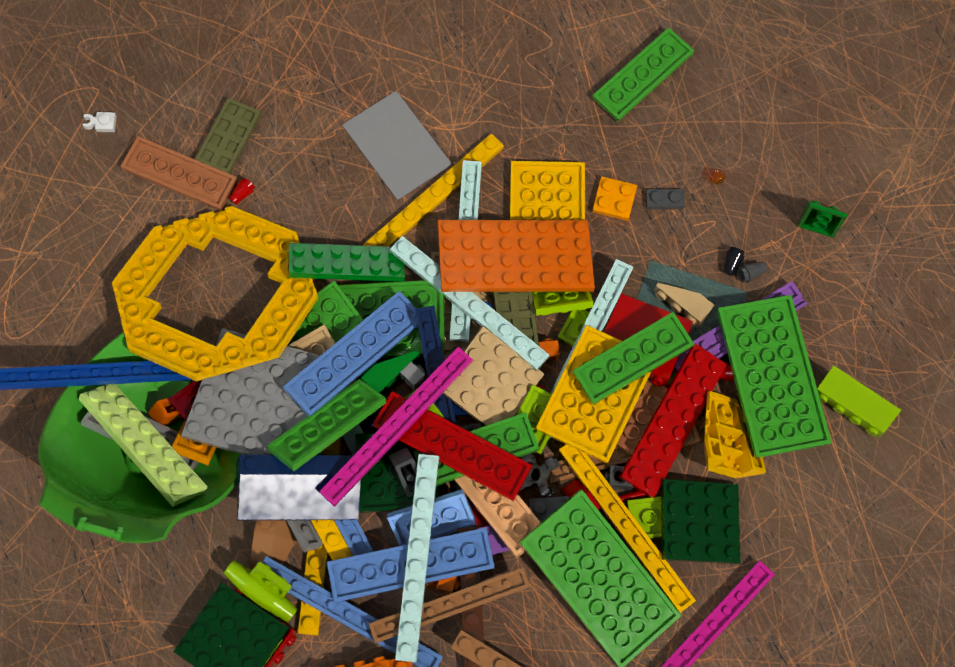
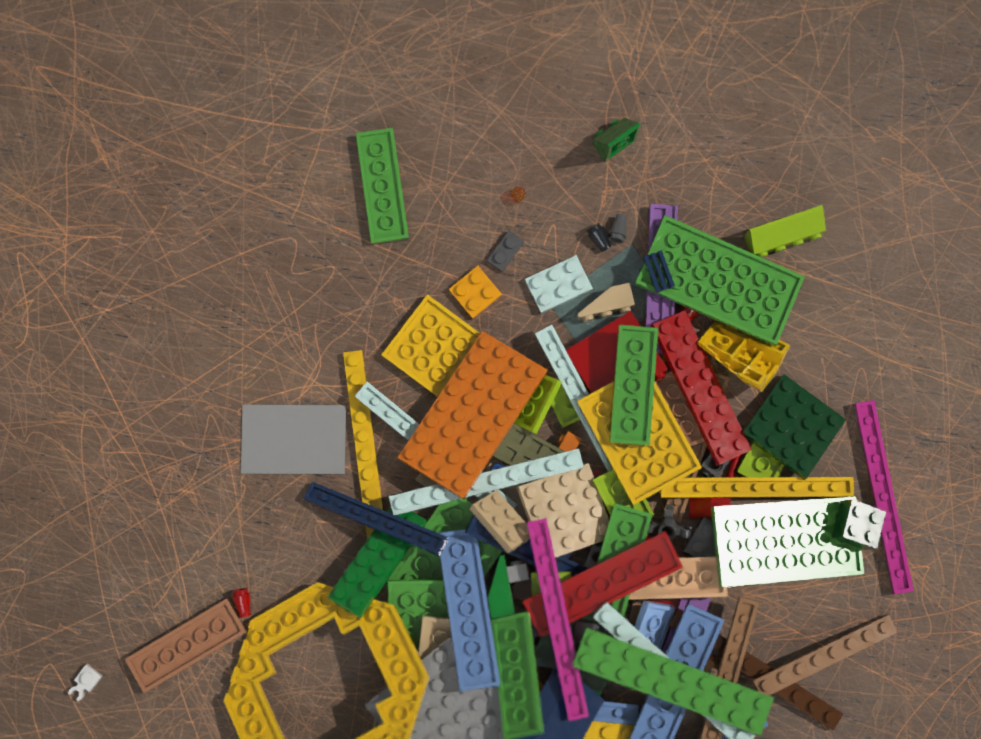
camera: 55 degrees left, 10 degrees up
(228, 135) = (182, 579): olive plate -> none
(377, 240) = (376, 519): none -> dark blue plate
(411, 557) = (672, 681): none -> bright green plate
(444, 329) = (501, 521): none -> tan plate
(659, 631) = (858, 524): none -> brick
(670, 256) = (558, 284): none -> light aqua plate
(750, 306) = (659, 254): none -> dark blue tile

